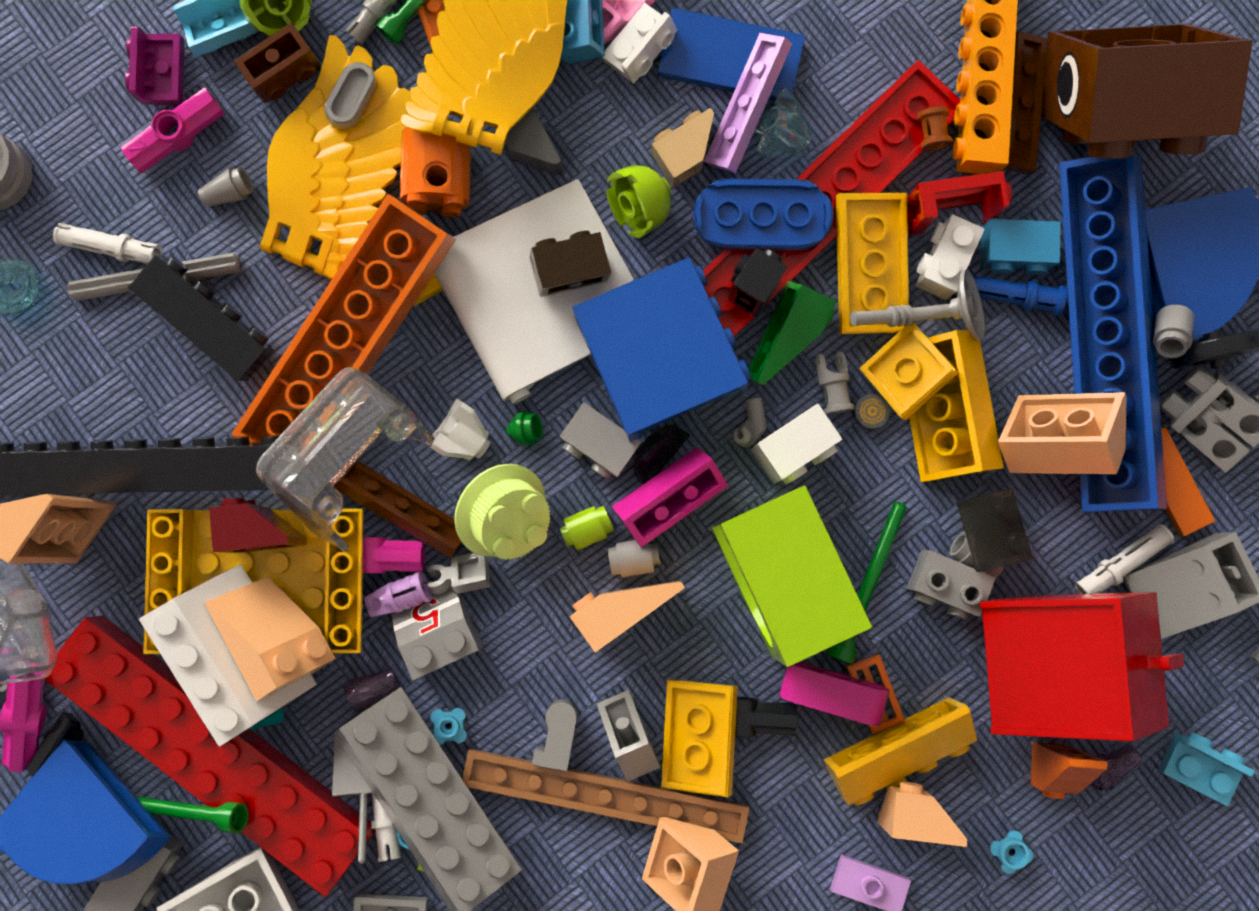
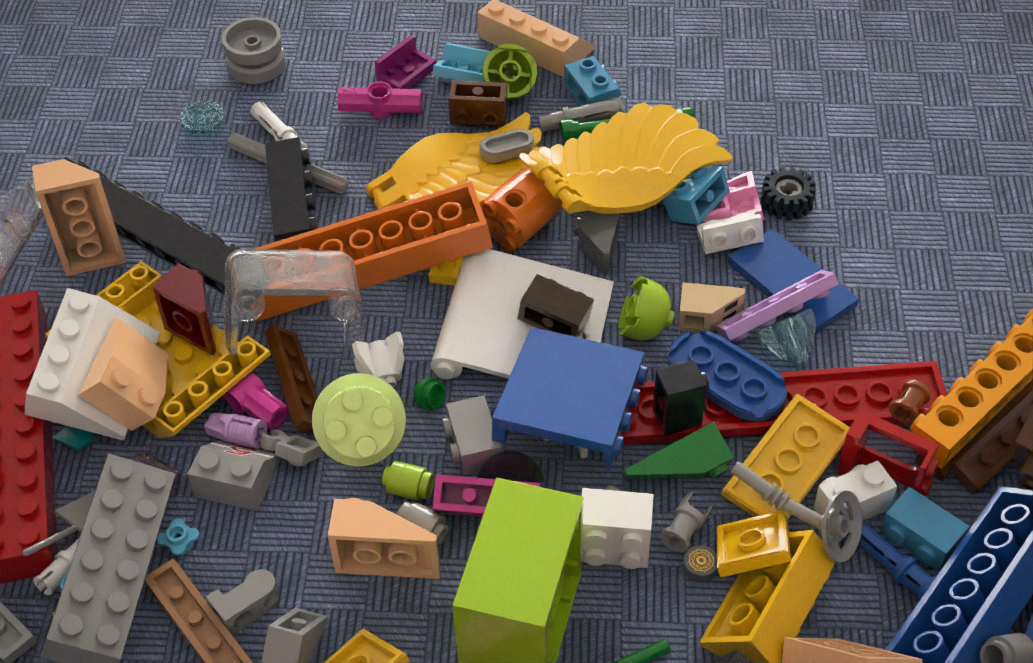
camera: 40 degrees right, 35 degrees down
(226, 188) = (380, 146): light grey cone -> none

